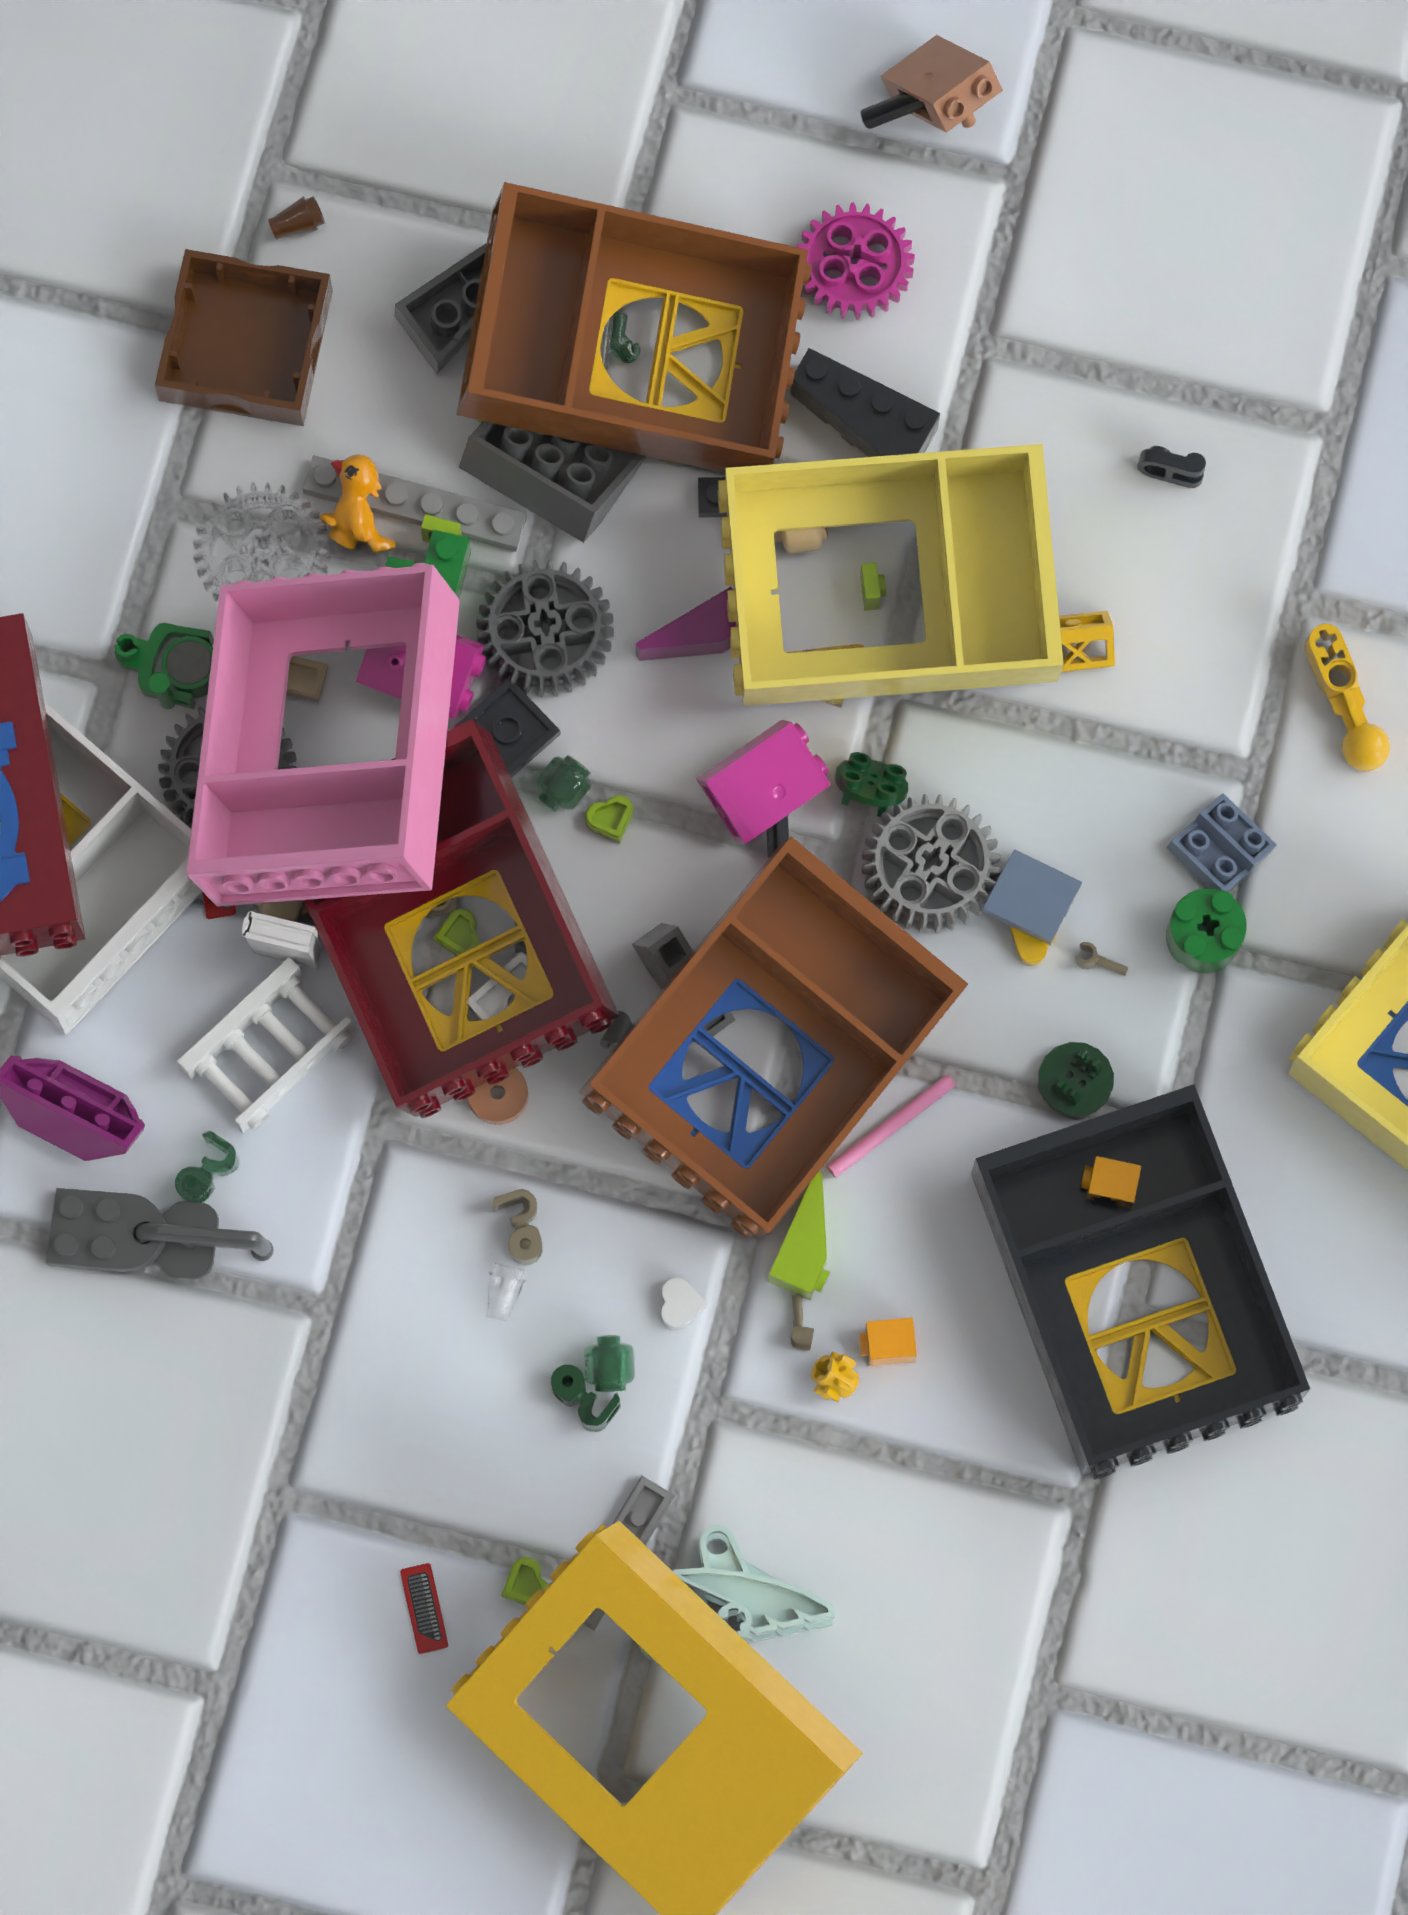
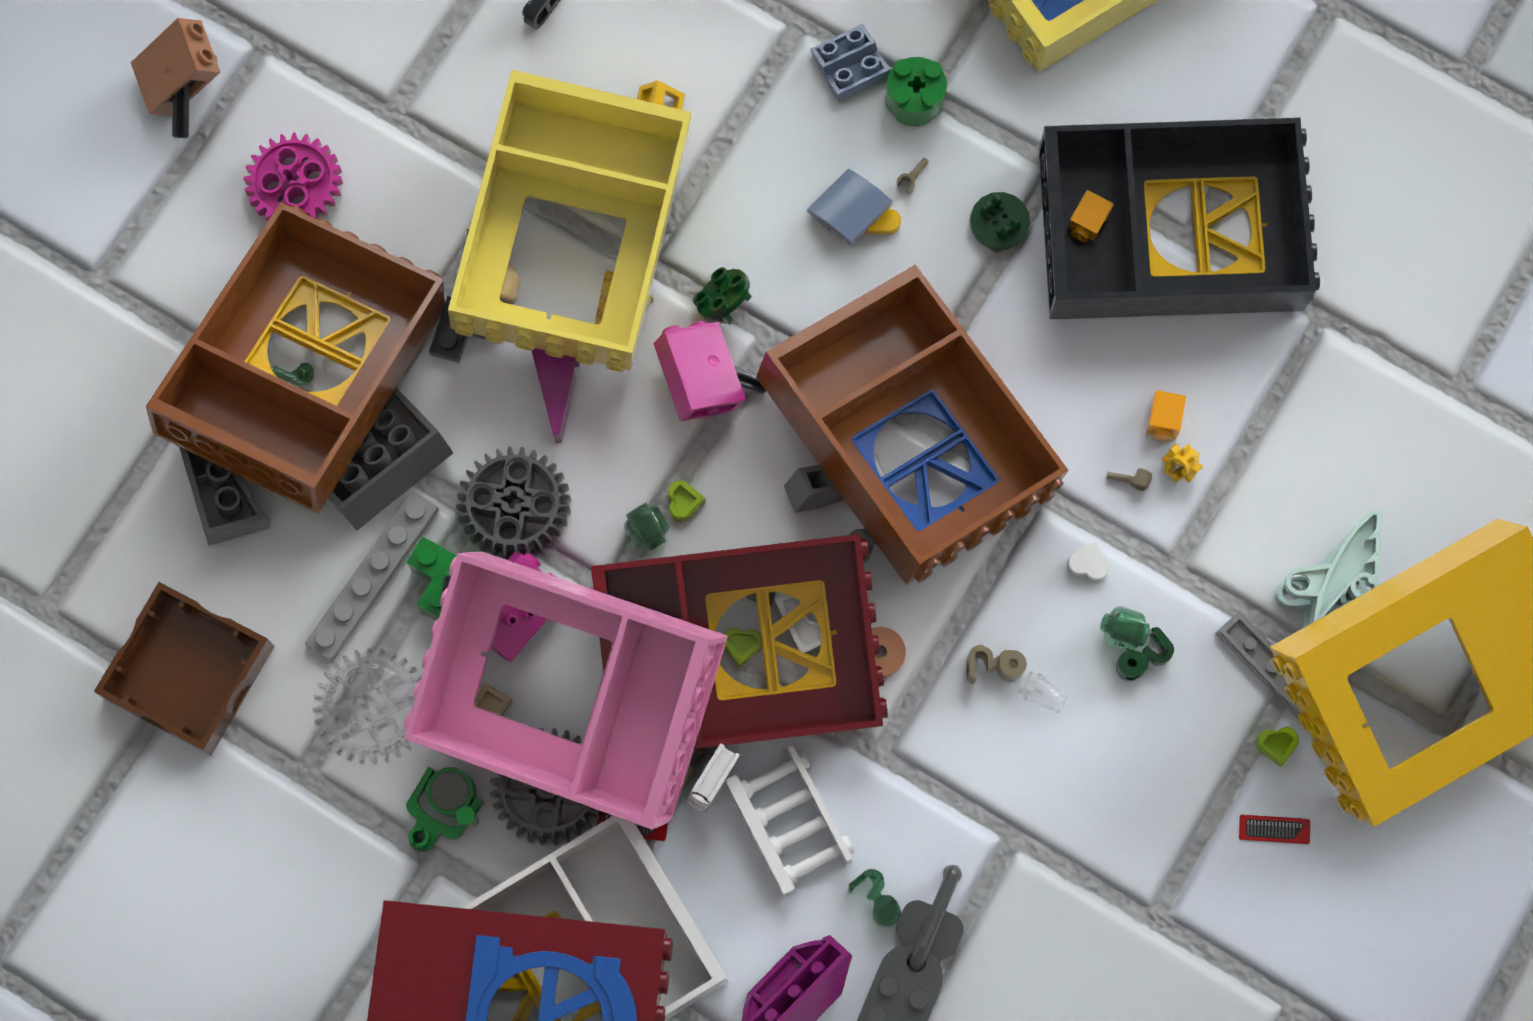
camera: 70 degrees left, 0 degrees up
(297, 218) = (97, 596): reddish brown cone -> none
(352, 515) = (369, 625): light orange animal -> none
(433, 523) = (399, 564): lime tile -> none
(515, 725) = (583, 548): black plate -> none
(803, 1252) = (1081, 455): lime slope -> none
(862, 409) = (423, 207): black wedge -> none
(872, 586) = (563, 248): lime plate -> none
(891, 1125) = (986, 345): bright pink piece -> none
(899, 827) = (799, 259): light grey gear -> none

